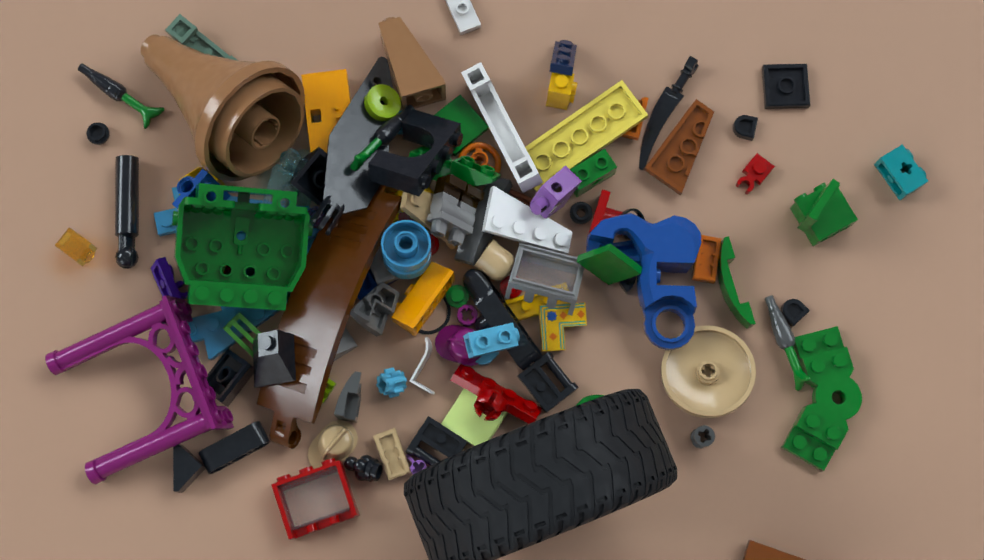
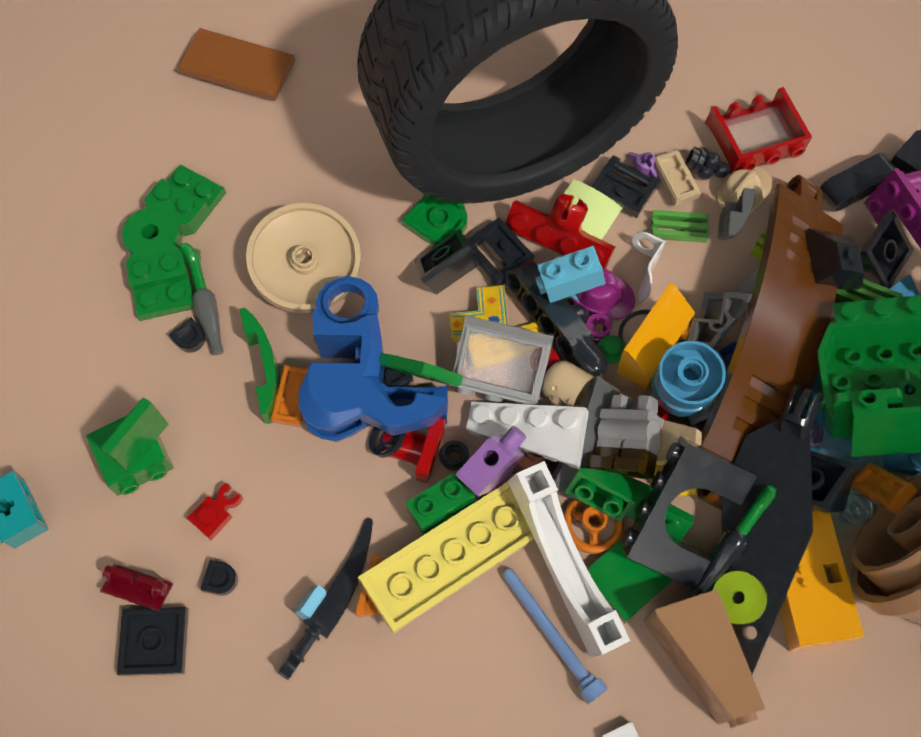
camera: 175 degrees left, 10 degrees down
(272, 167) = (883, 488): none -> orange plate
(391, 382) = (685, 246): medium azure gear -> none
(412, 410) = (680, 221): none -> bright green tile
(486, 53) = (590, 686): none -> medium blue piece
(561, 91) = (481, 617): yellow brick -> none
(563, 57) = (479, 664): dark blue plate -> none
(591, 370) = (447, 262): none -> black slope
(678, 152) = (318, 537): dark orange wing -> none
(680, 105) = (309, 602): none -> medium azure tile
(710, 436) = (316, 191): dark grey bush -> none
(803, 119) = (135, 587): none -> dark red hinge

